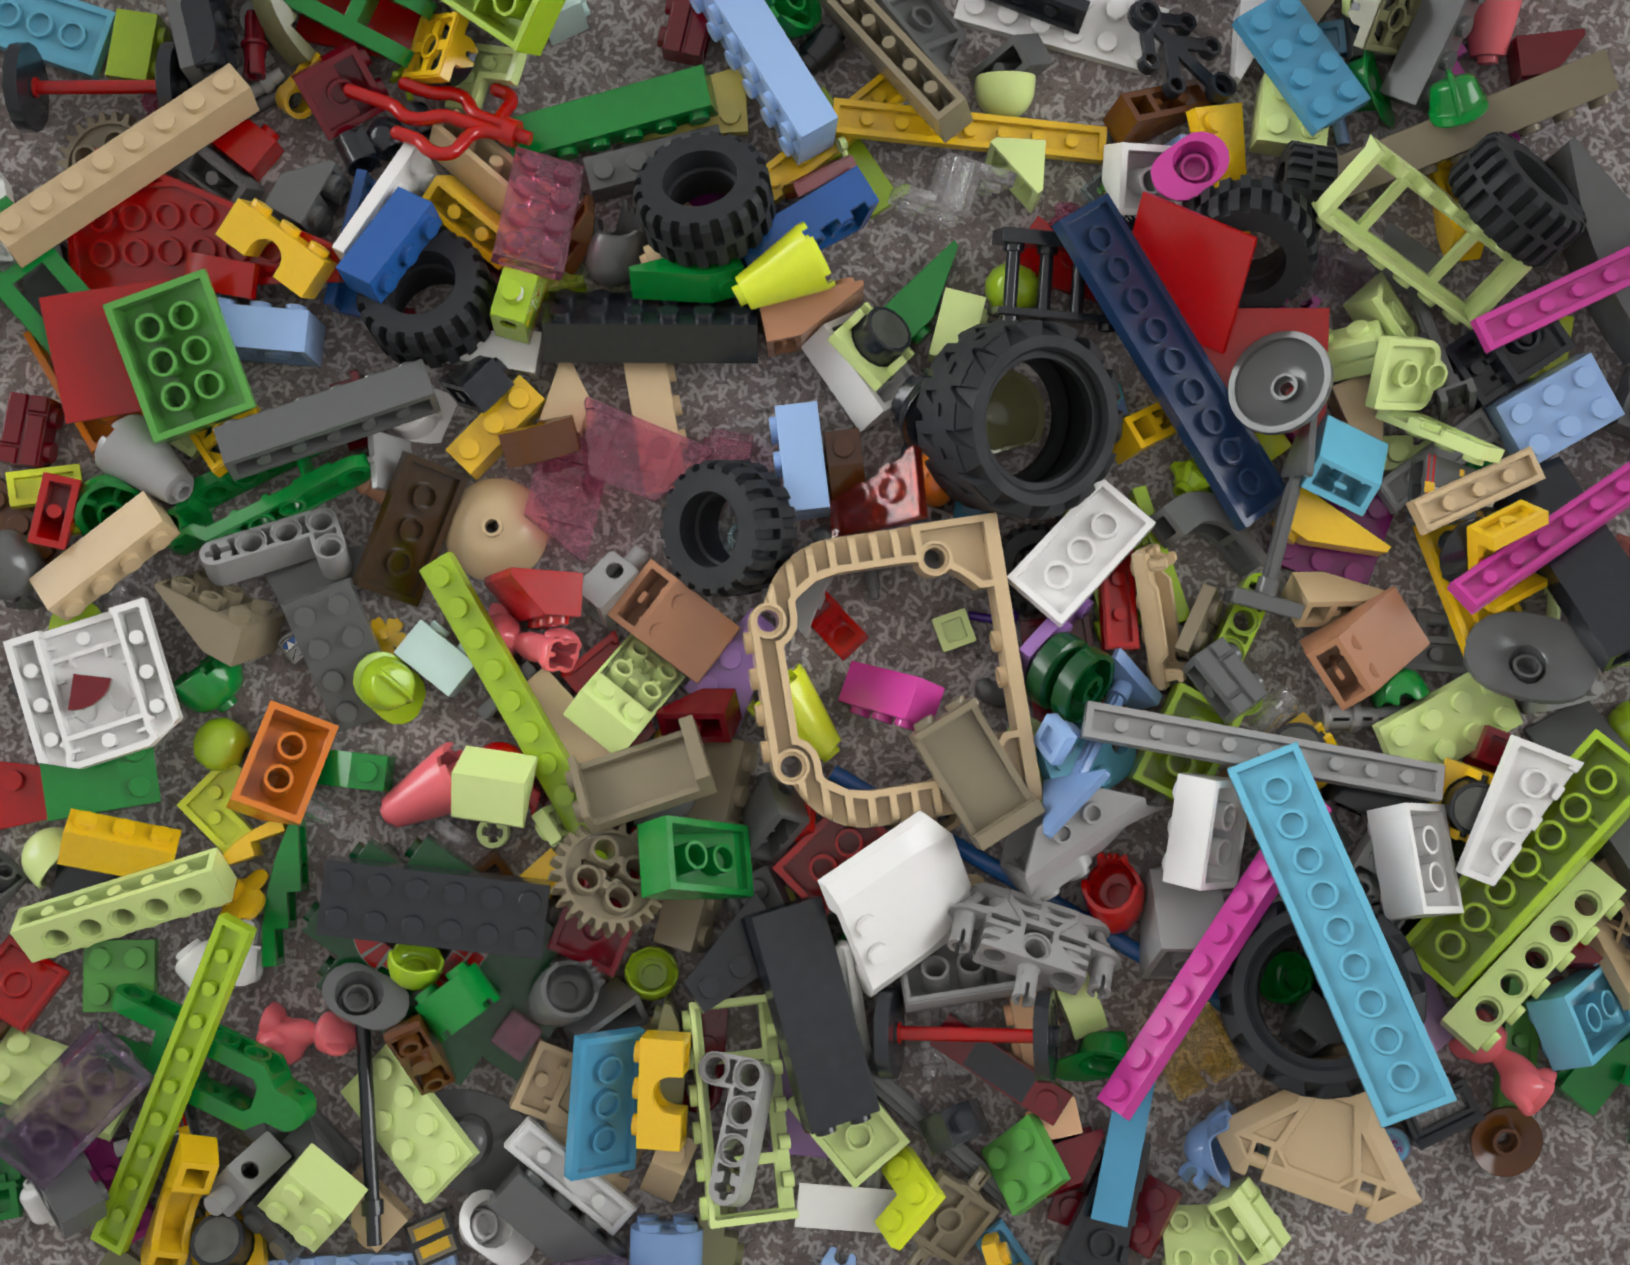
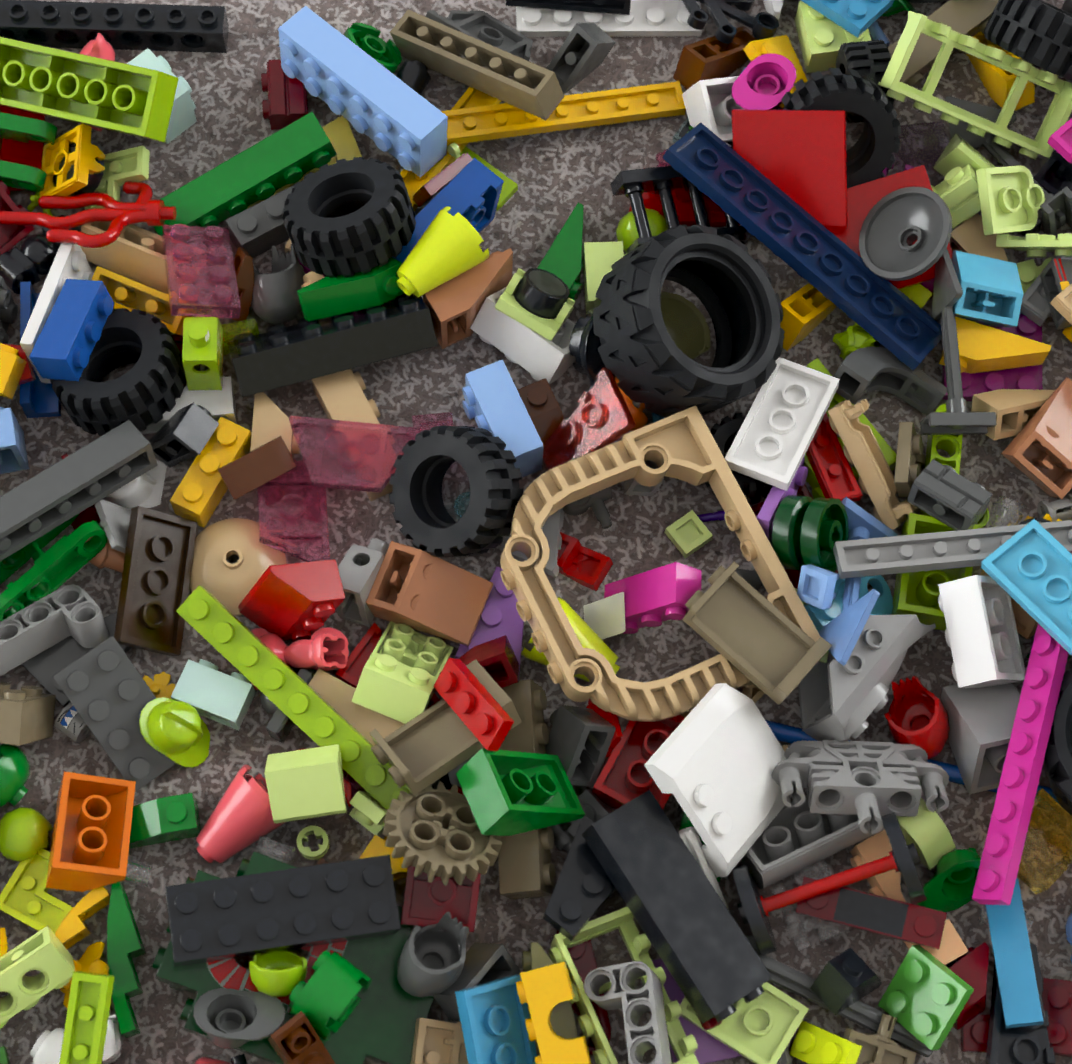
camera: 20 degrees left, 15 degrees down
(516, 1035) = (395, 1019): clear pink plate -> none
(651, 973) = (509, 926): lime hair -> none
(673, 764) = (473, 704): none -> red plate
(841, 695) = (606, 616): none -> white sticker
(951, 189) = (562, 160): clear bracket -> none
(1004, 92) = (582, 73): yellowish green helmet -> none
(1027, 160) = (615, 129): yellowish green slope -> none

